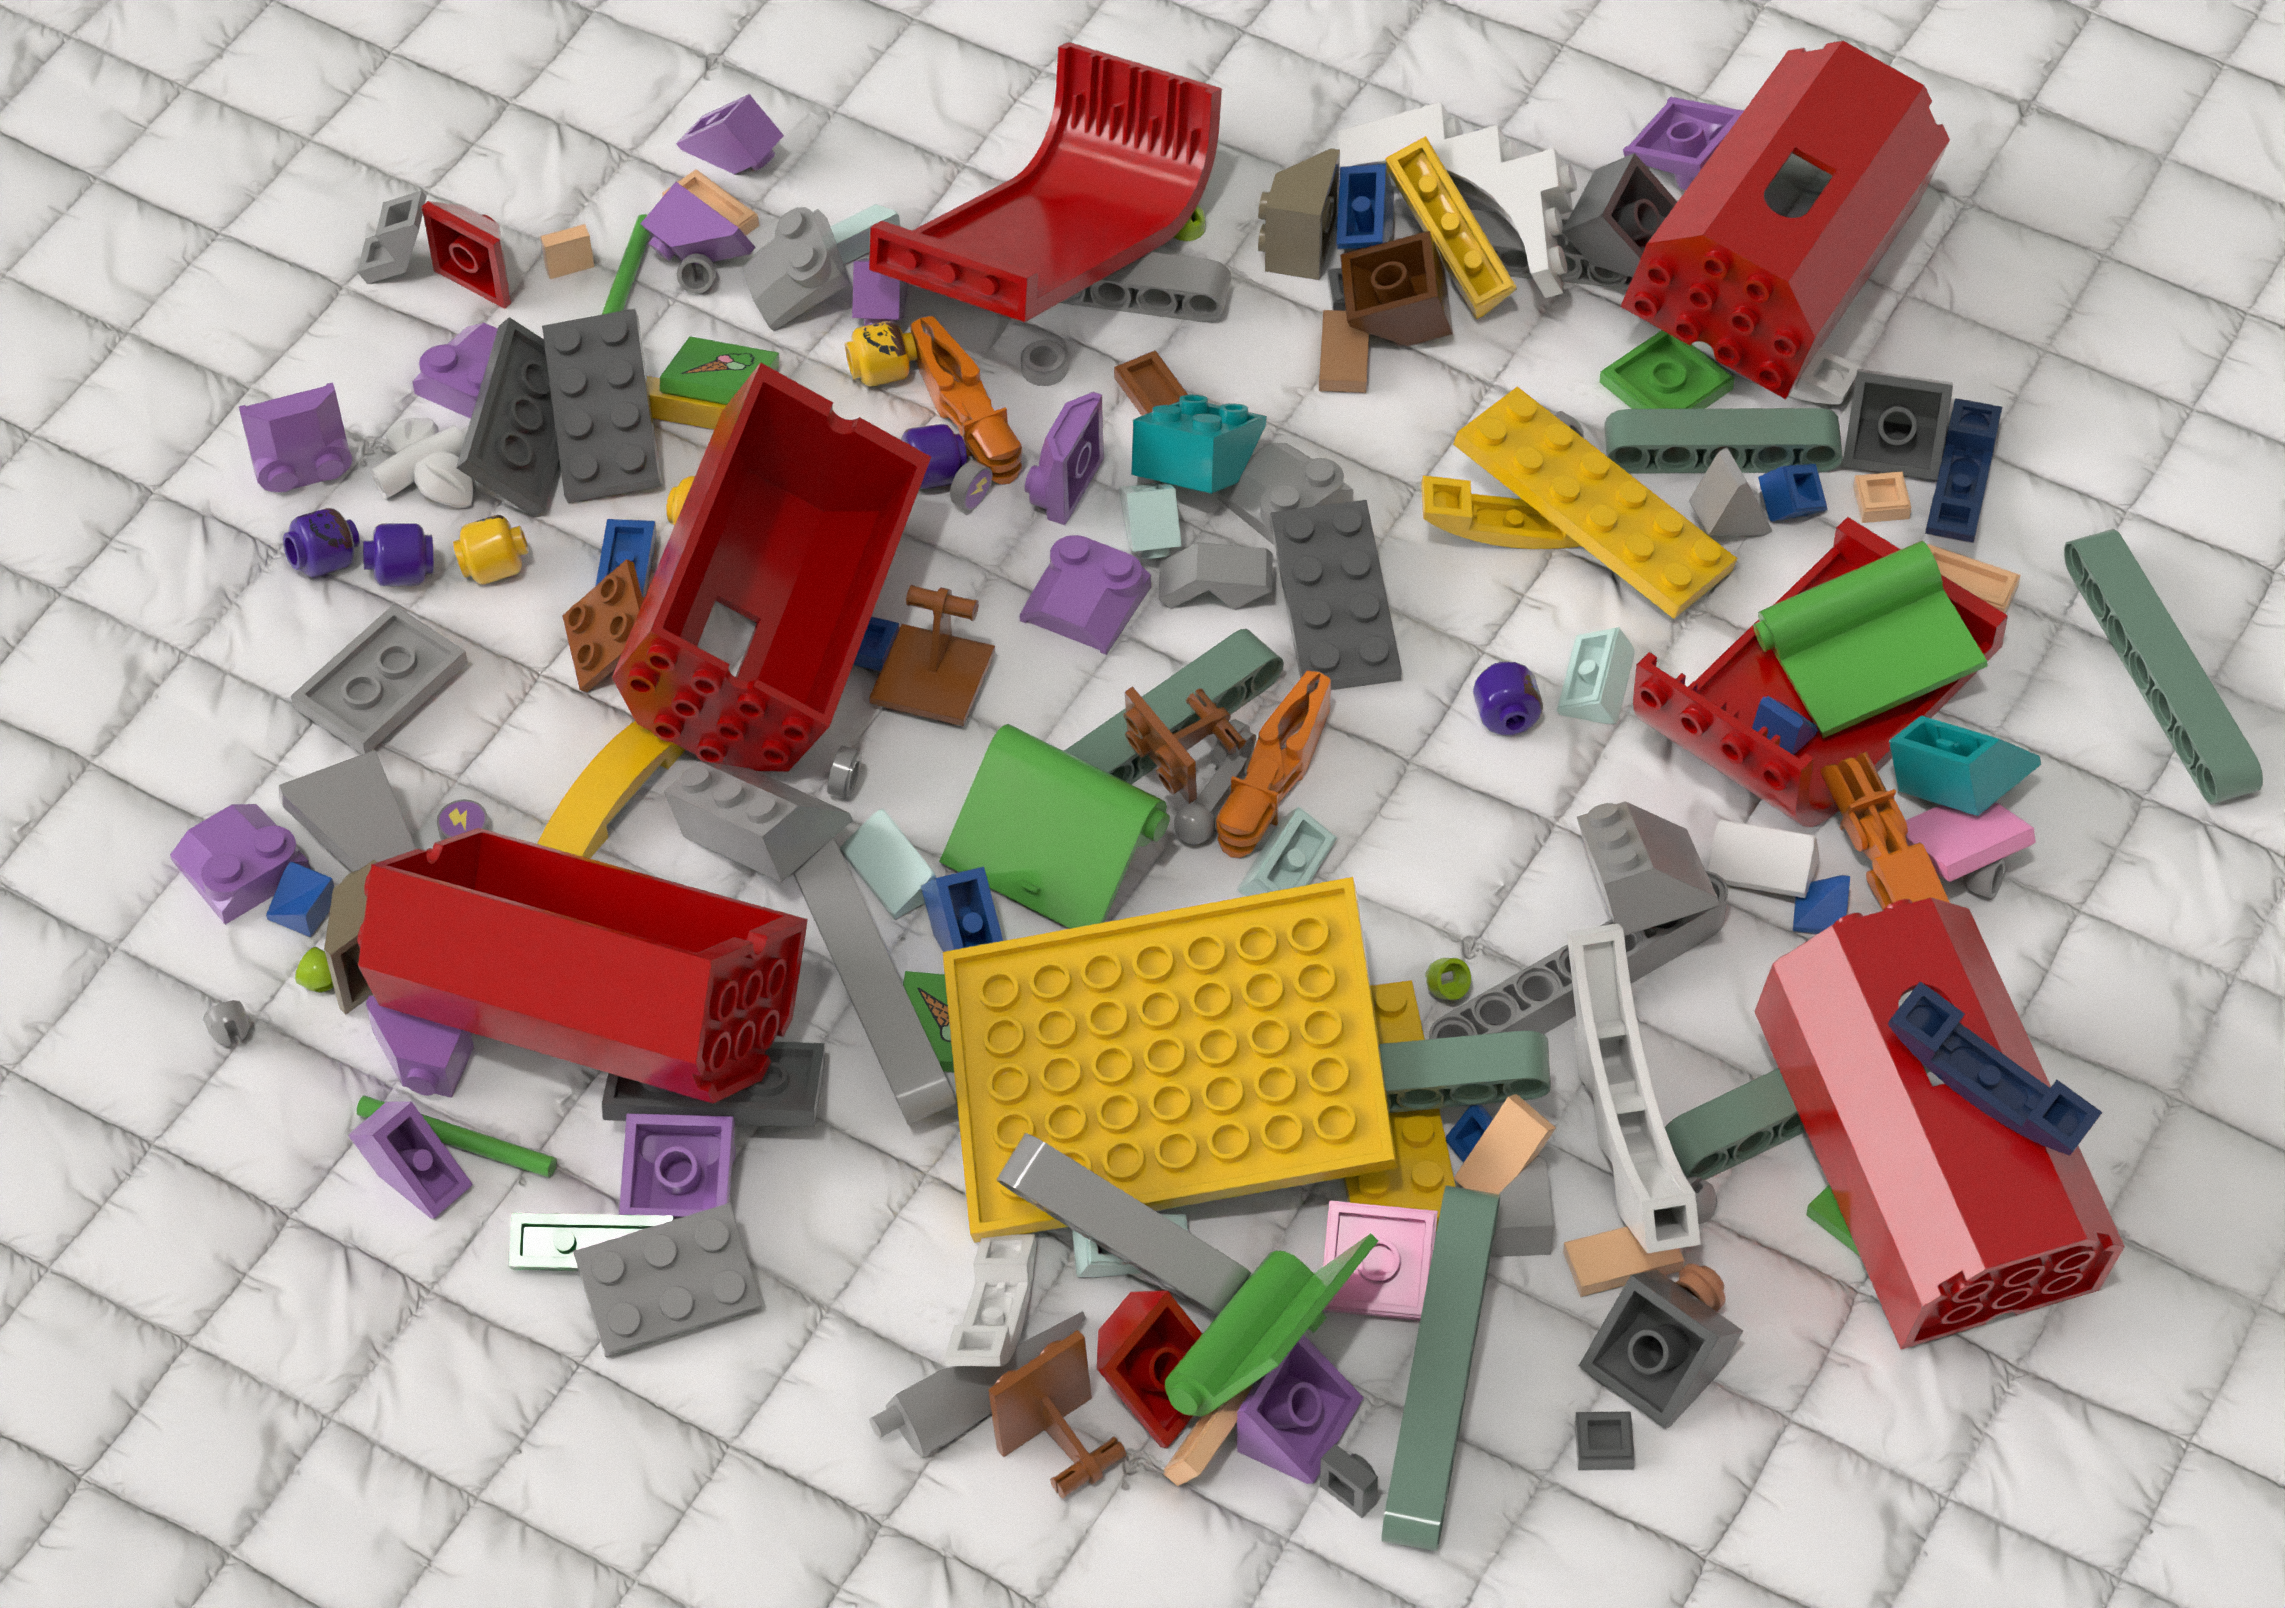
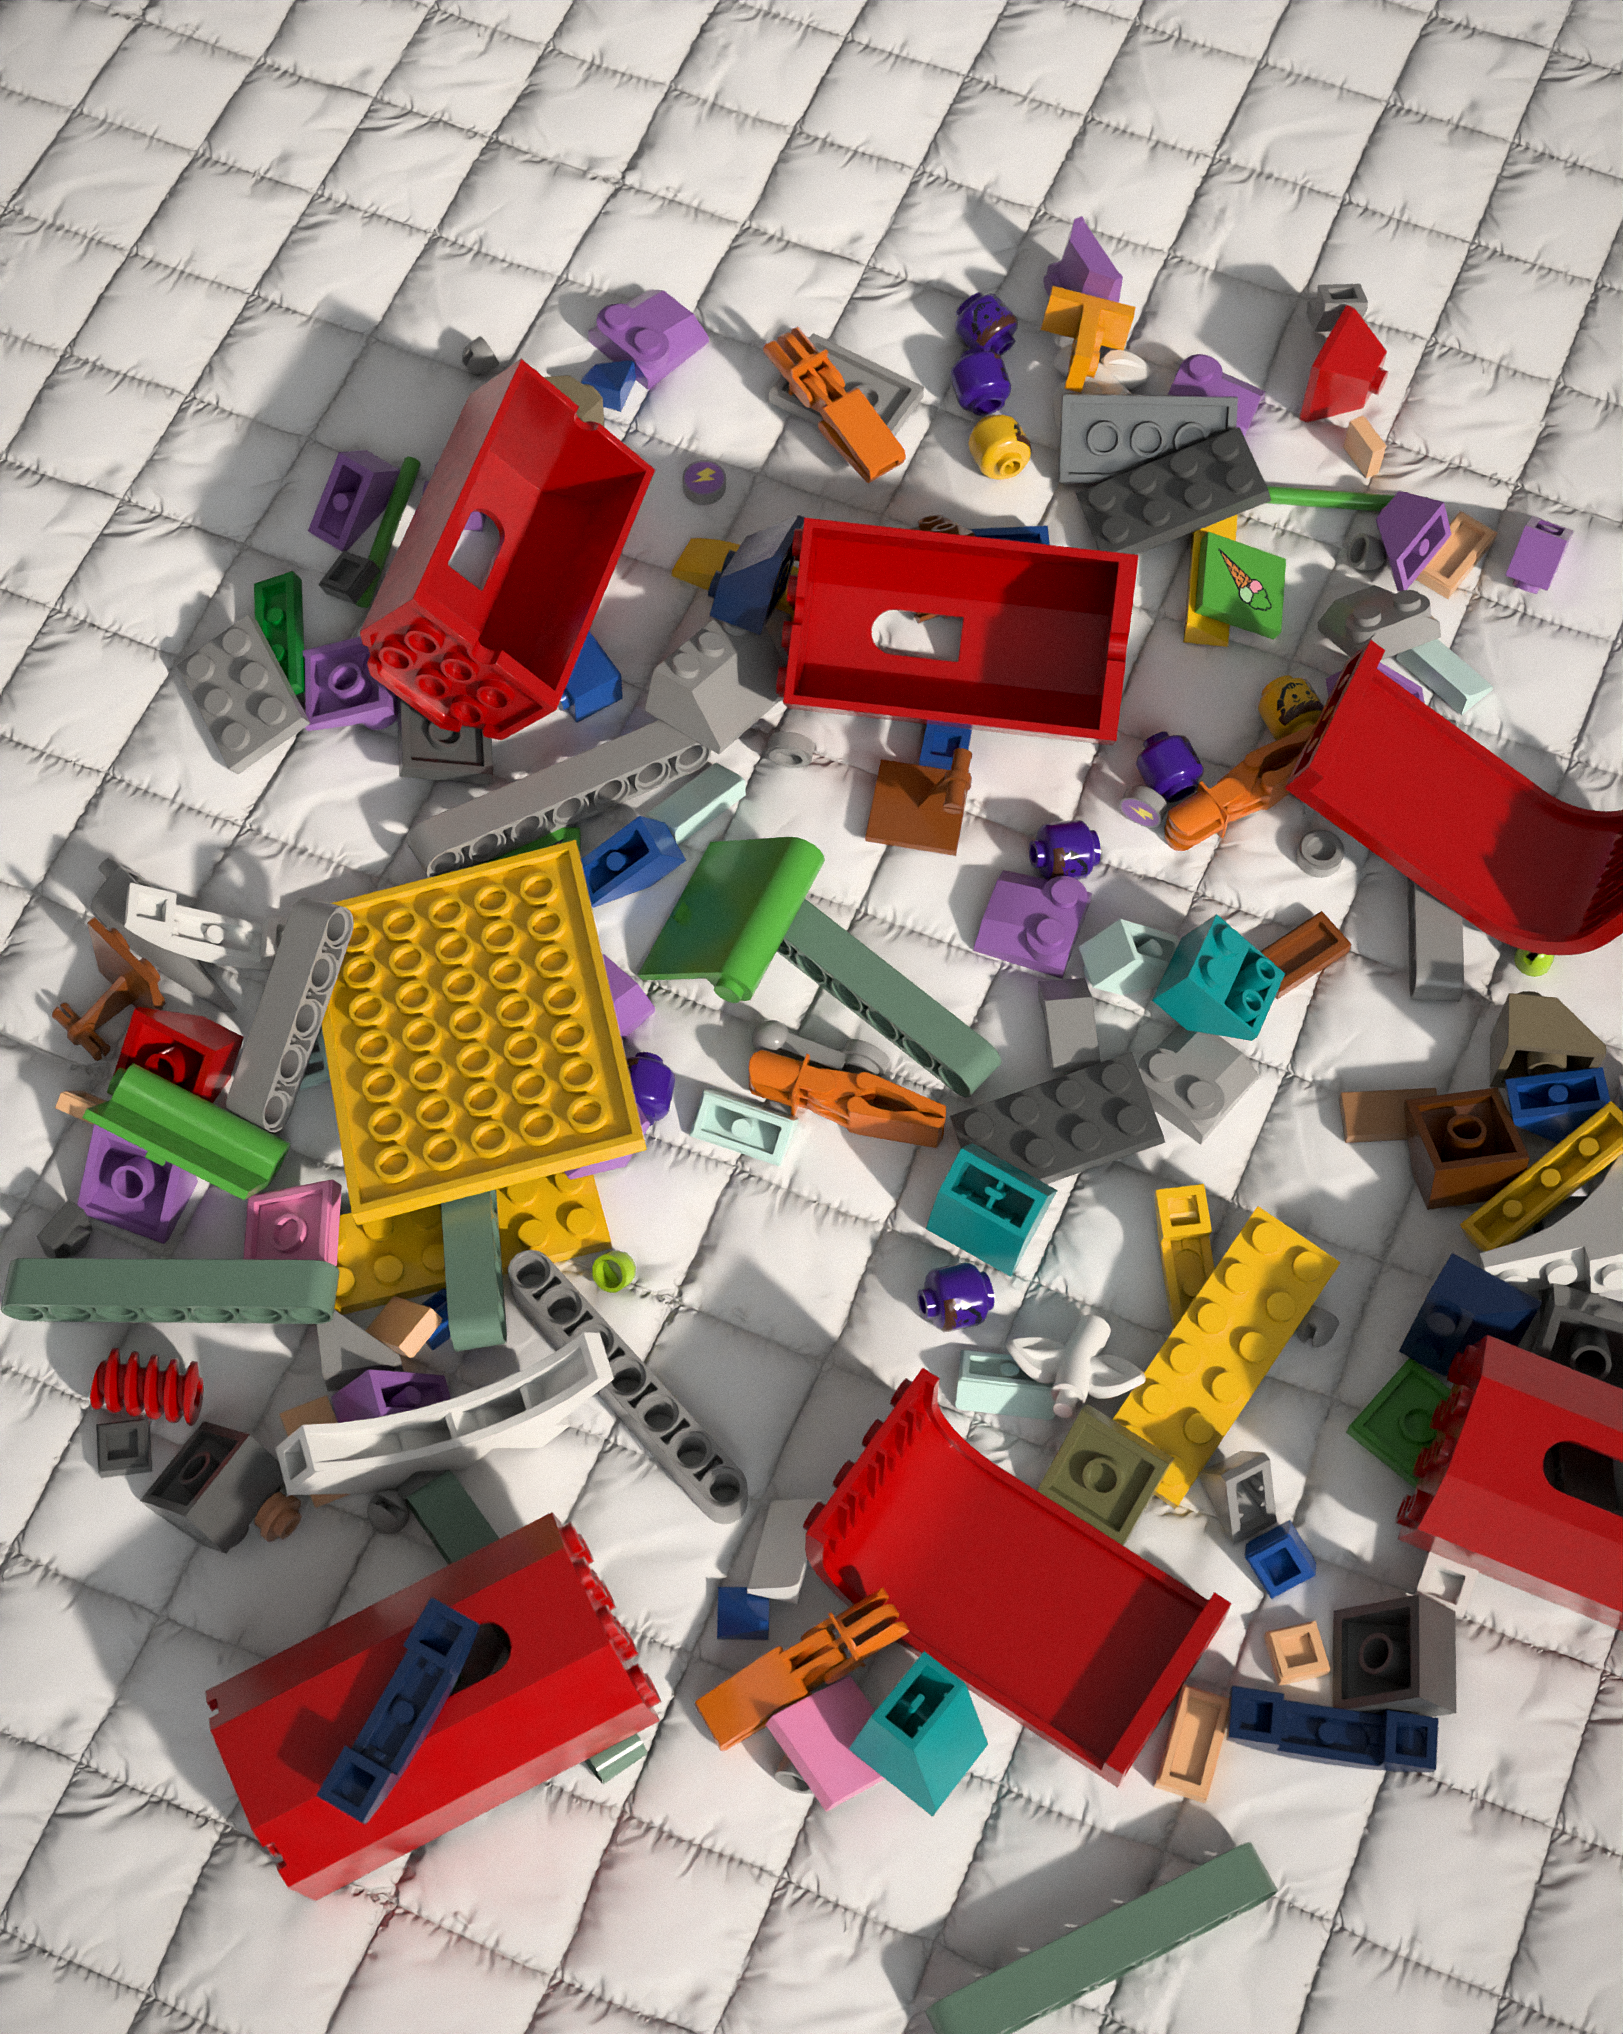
camera: 80 degrees right, 10 degrees up
(350, 811) = (679, 400): light grey slope -> none
(368, 441) = (1092, 324): none -> light orange bracket
(430, 667) = (847, 417): none -> orange arm
(520, 1169) = (349, 577): none -> dark grey tile
(651, 734) = (755, 577): none -> dark blue slope
(1013, 554) = (1065, 849): none -> dark purple head
(1068, 458) = (1177, 876): medium lavender slope -> none
(1168, 750) = (810, 979): dark orange plate -> none
(1425, 647) = (989, 1208): none -> teal slope
(1544, 1400) = (148, 1388): none -> red piece
(1577, 313) = (1463, 1310): none -> dark blue slope
(1587, 1183) = (387, 1393): none -> medium lavender slope
(1603, 603) = (1076, 1365): none -> white plant
(1644, 866) = (733, 1422): light grey slope -> none
(1691, 438) = (1334, 1484): sand green beam -> none
(1710, 596) = (1105, 1474): none -> olive plate
(1785, 722) = (957, 1560): blue slope -> none
(1870, 639) = (1069, 1636): bright green door -> none

